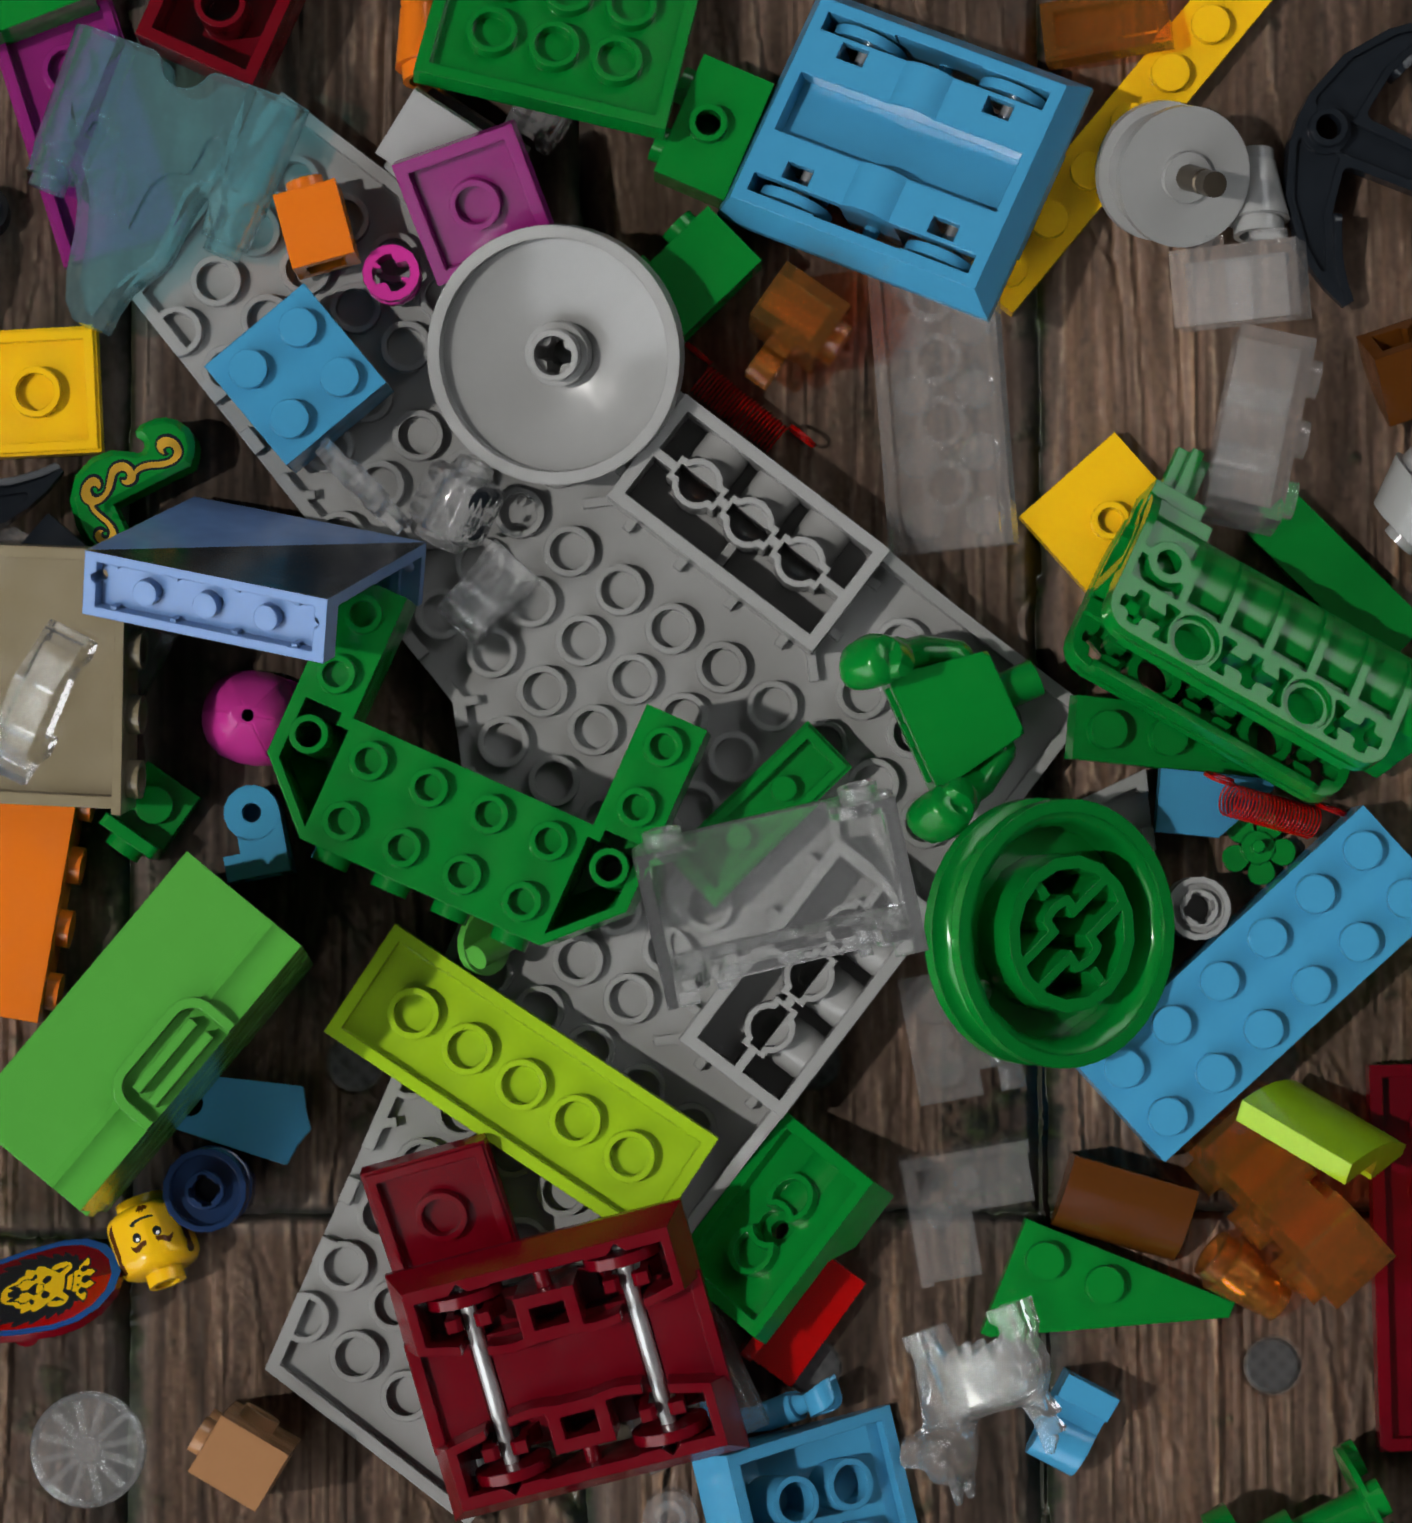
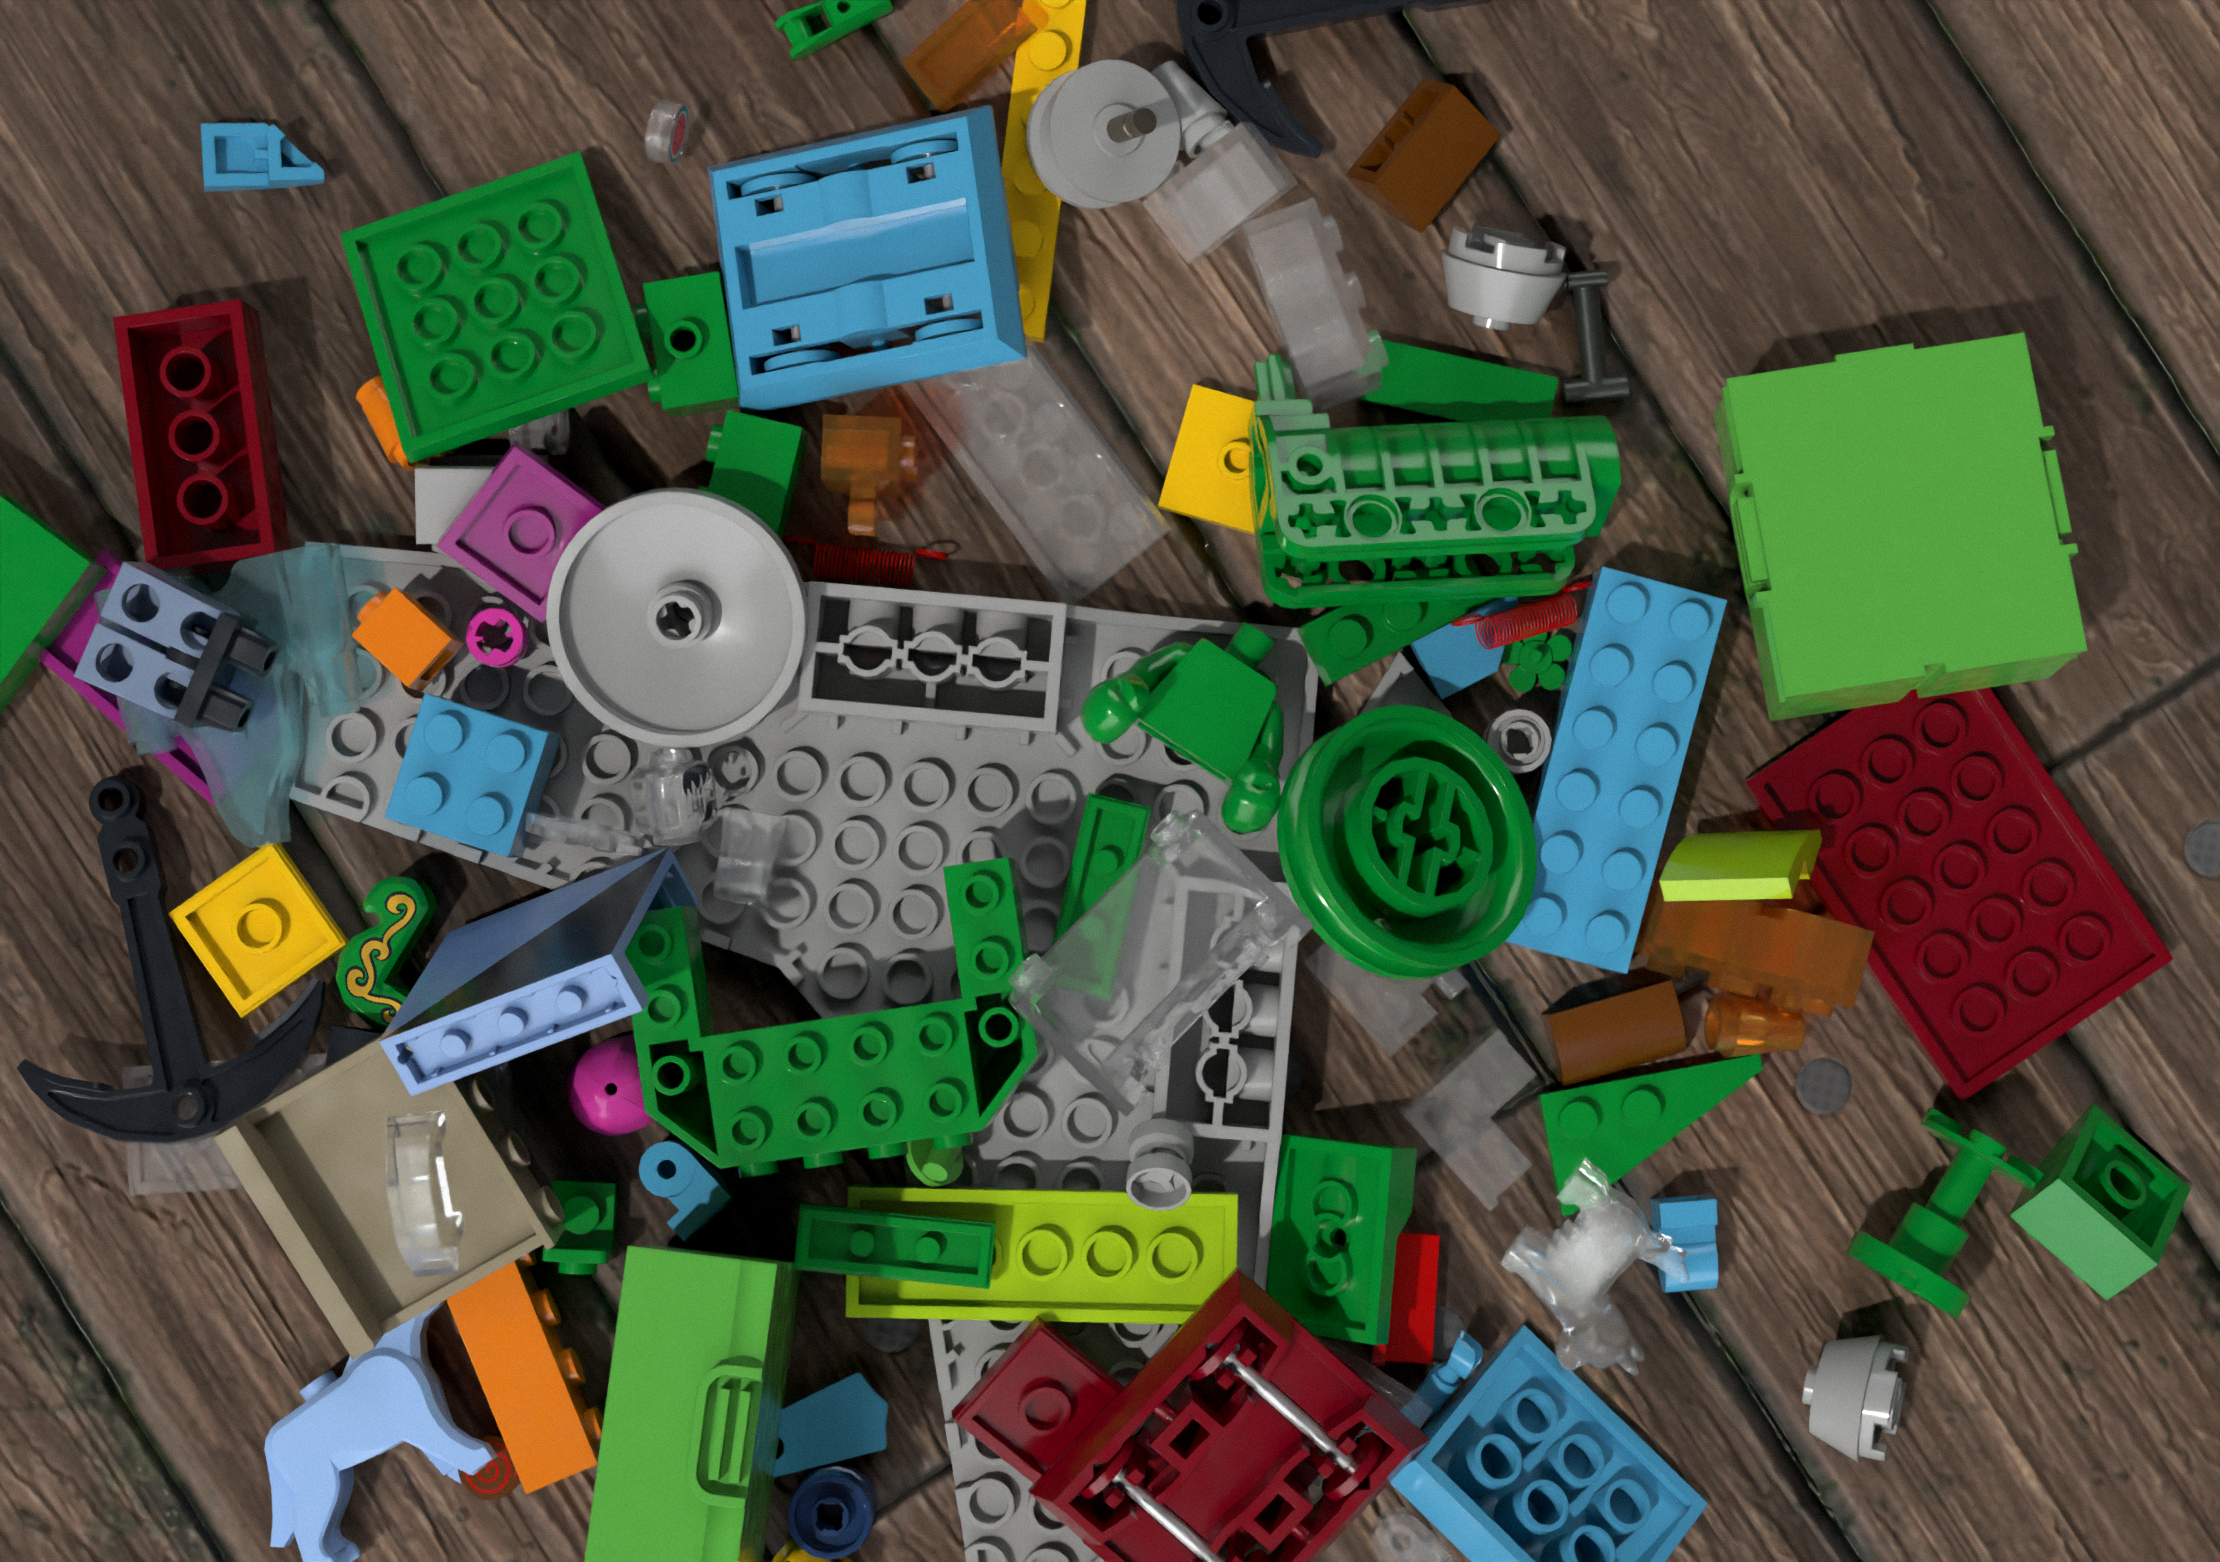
camera: 30 degrees left, 0 degrees up
(132, 134) = (198, 656): none -> sand blue hips
(404, 997) = (895, 1245): none -> green tile
(677, 1063) = (1160, 1164): none -> light grey wheel

